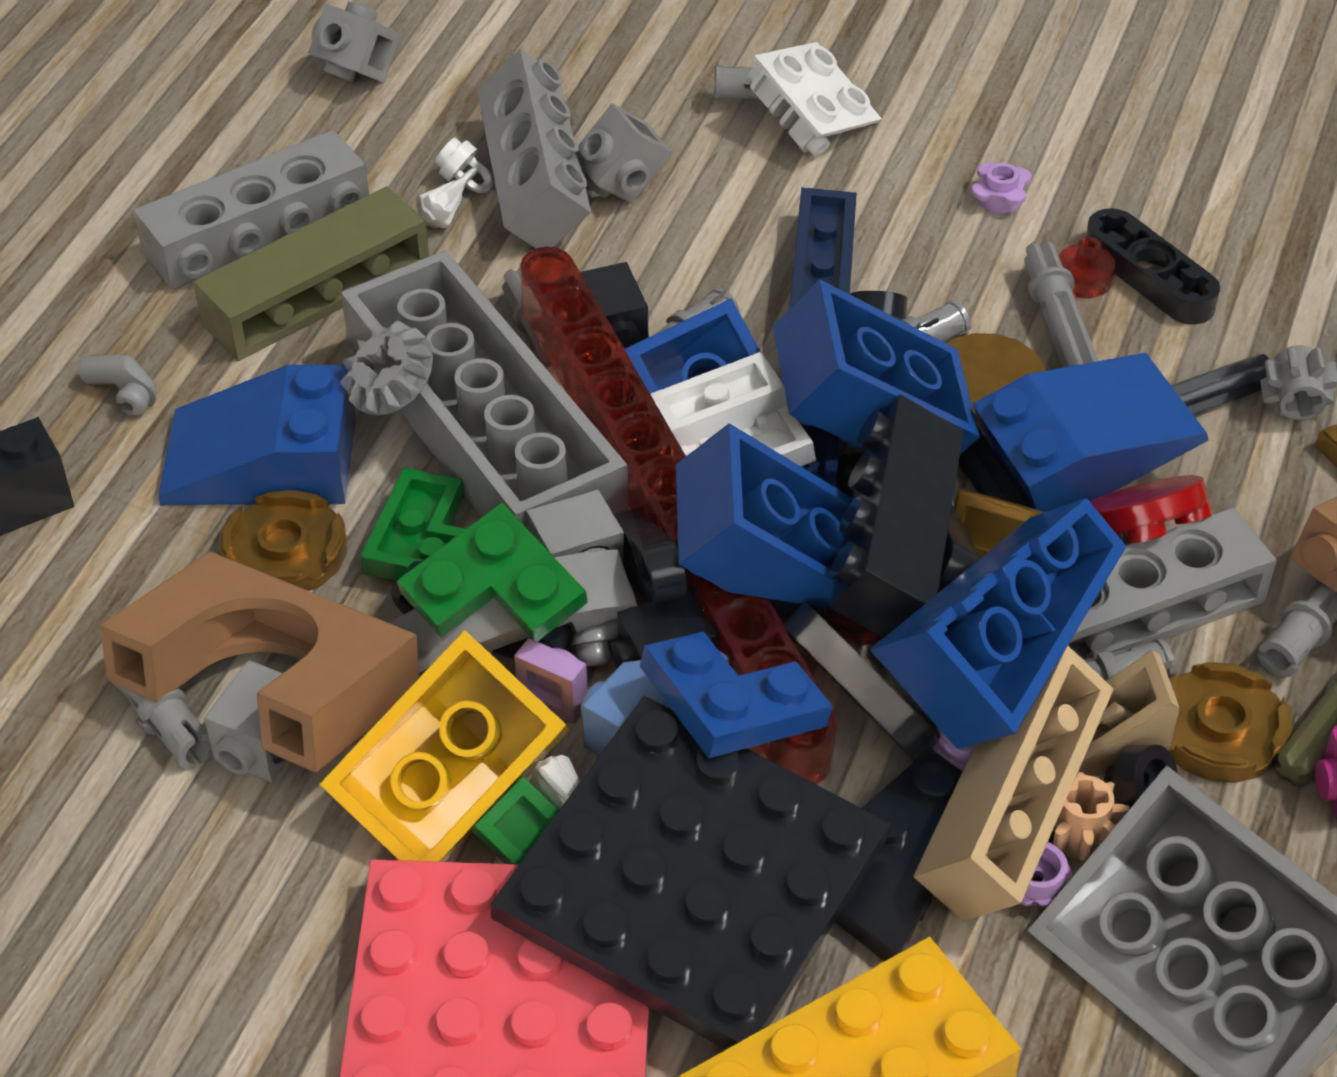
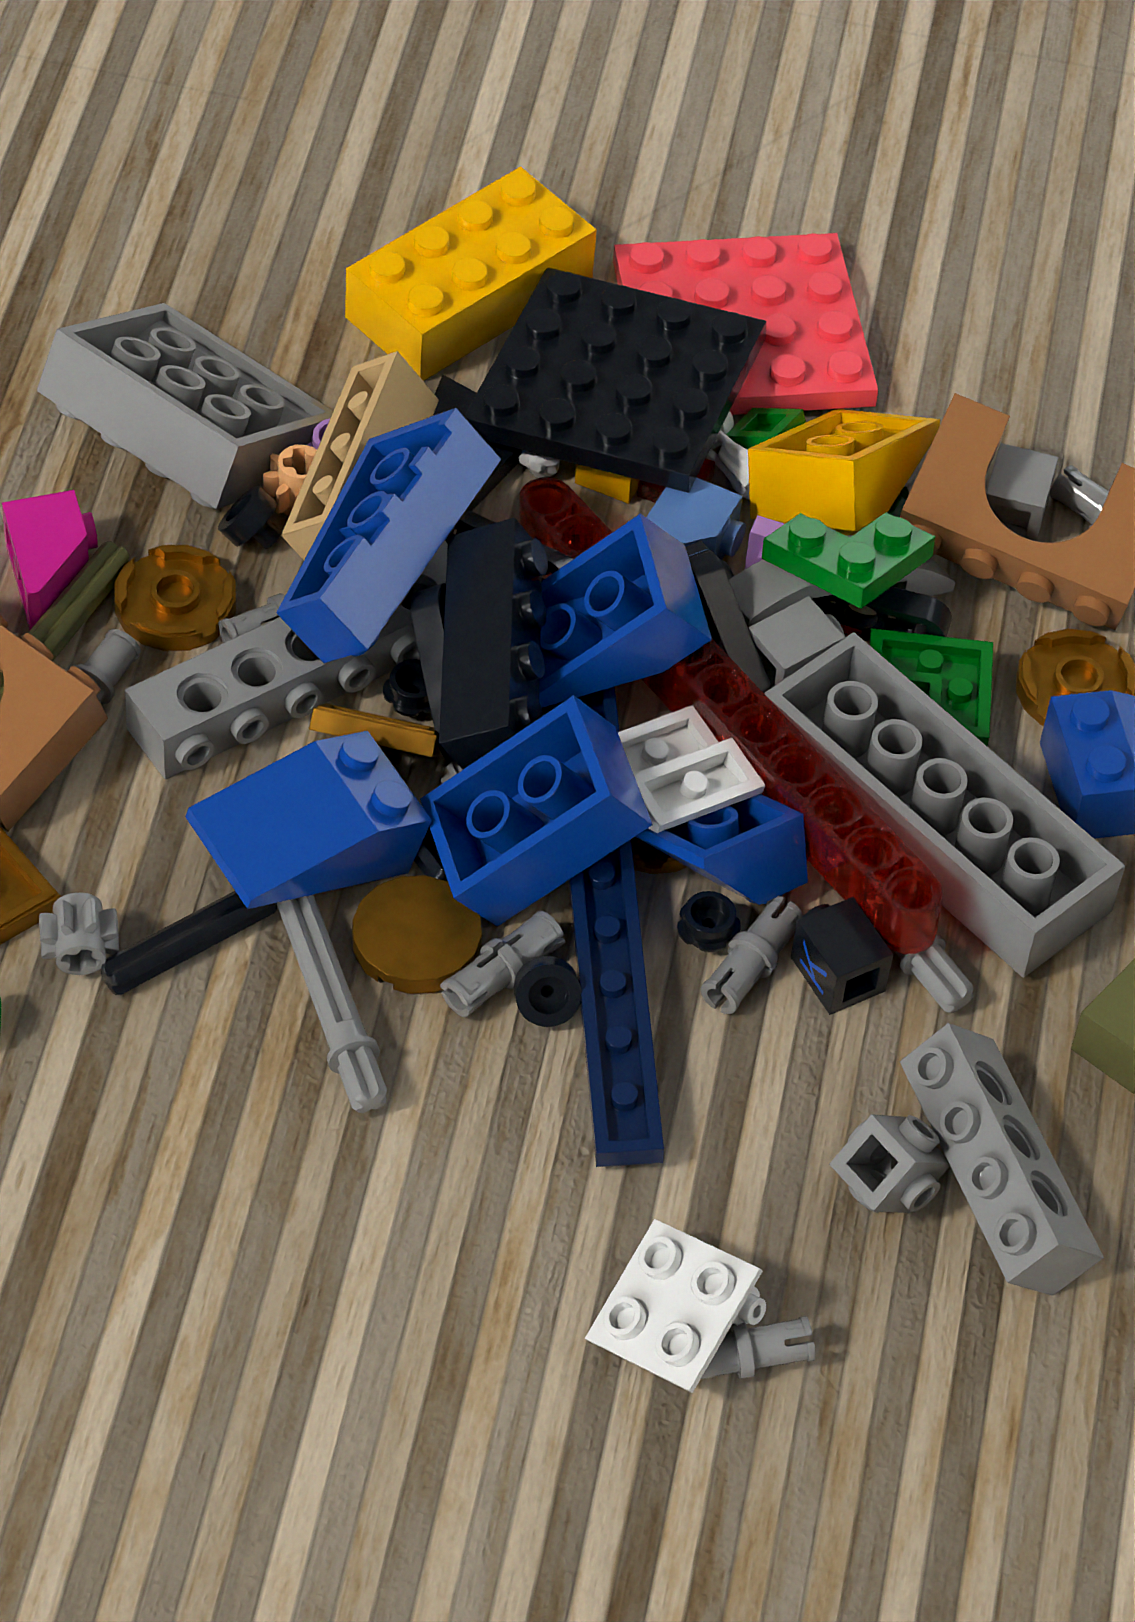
camera: 165 degrees right, 5 degrees up
(395, 385) = (1035, 763): light grey gear -> none
(441, 203) = (1088, 1161): white piece -> none
(728, 709) = (609, 457): blue plate -> none
(1001, 186) = (421, 1230): lavender plate -> none
(1090, 266) = (313, 1102): clear red tile -> none
(1137, 713) = (257, 556): tan slope -> none
(1146, 506) = (246, 729): red tile -> none
(1179, 290) = (242, 1140): black beam -> none

